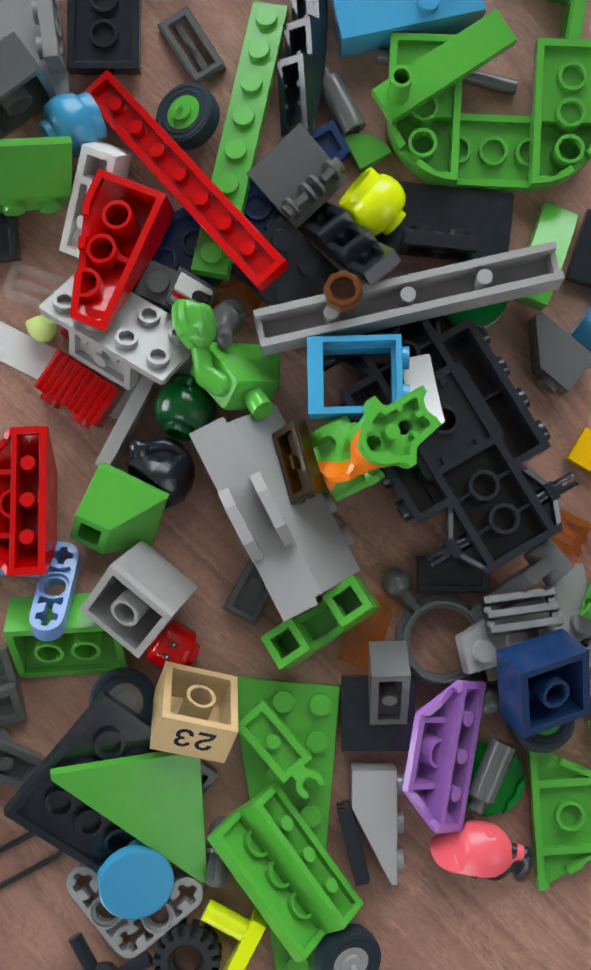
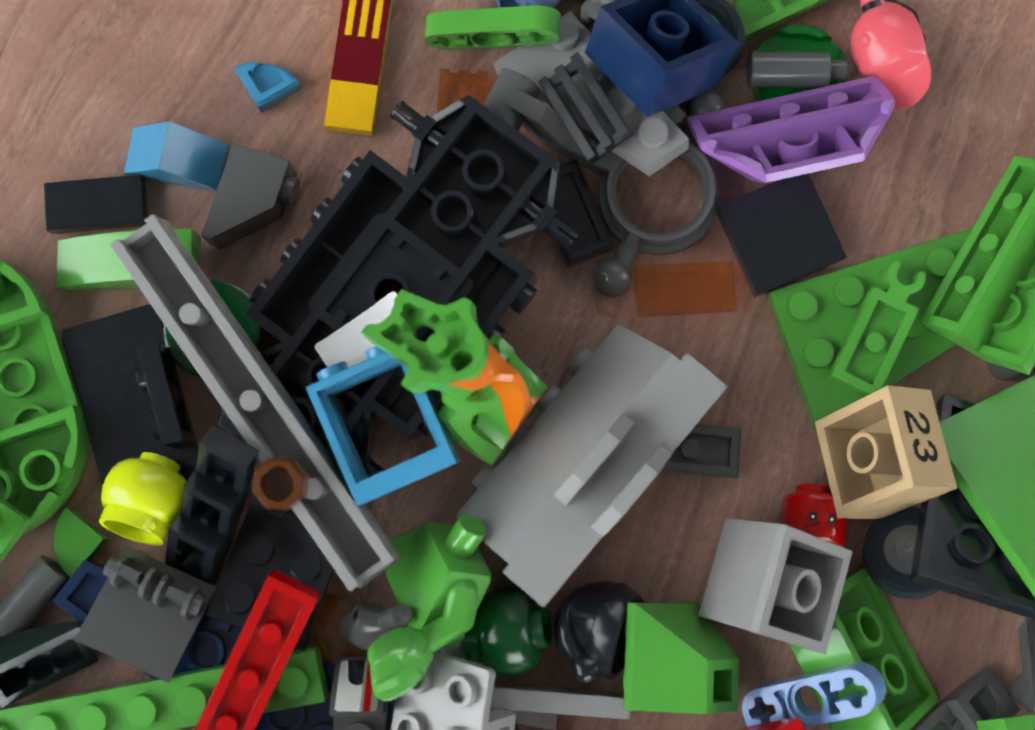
camera: 115 degrees left, 5 degrees down
(298, 461) = (519, 453): dark brown tile -> none
(313, 630) = (685, 329): bright green arch -> none
(353, 843) = (948, 198): black tile -> none
(374, 802) = (890, 192): light grey slope -> none
(388, 682) = (739, 232): dark grey slope -> none

